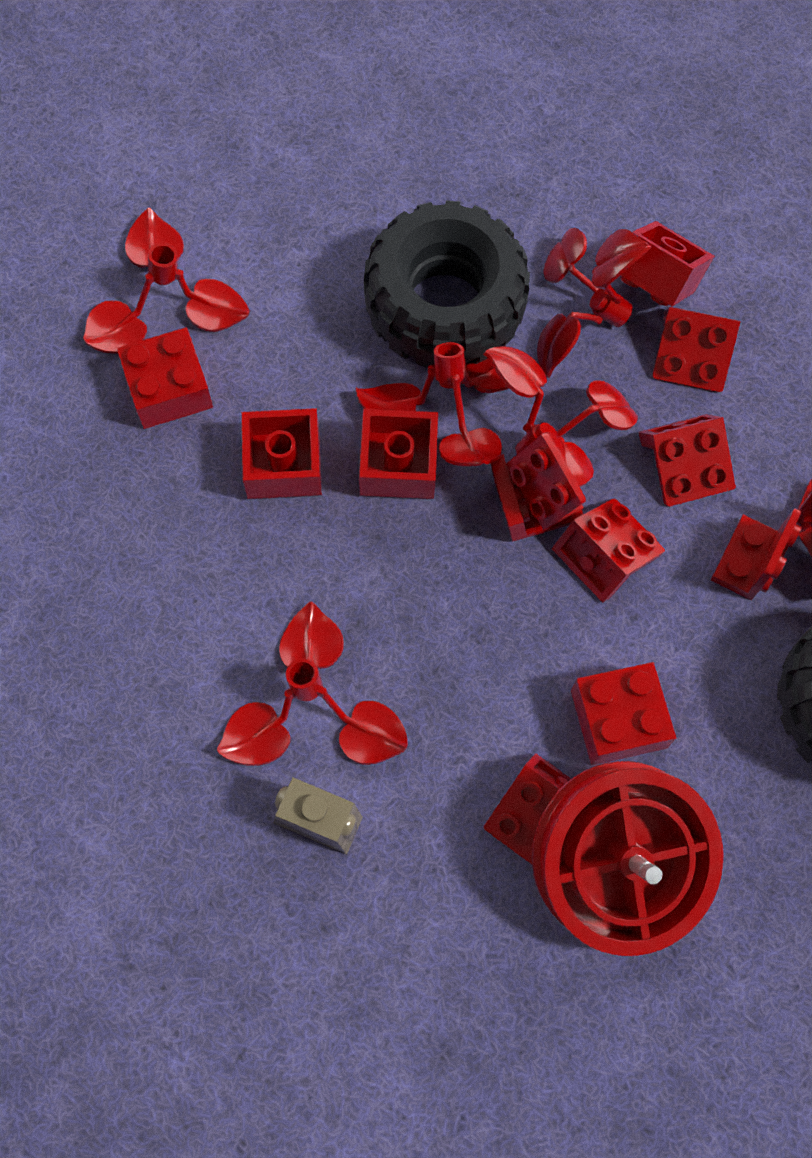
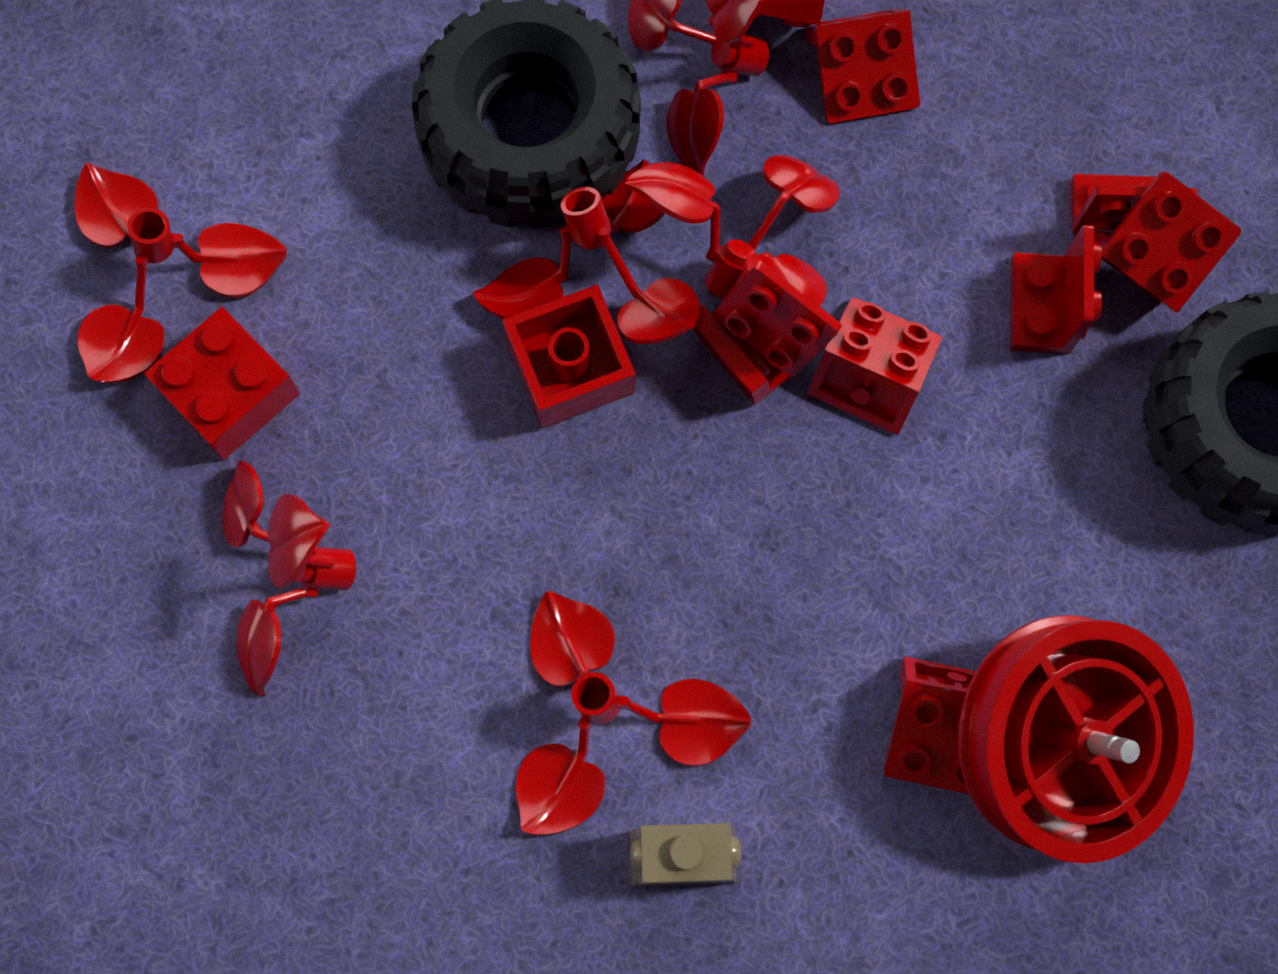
camera: 25 degrees left, 5 degrees up
(164, 517) = (293, 555): none -> red plant
(281, 453) = (422, 418): red brick -> none
(622, 713) = (986, 562): red brick -> none
(691, 458) = (921, 206): red bracket -> none

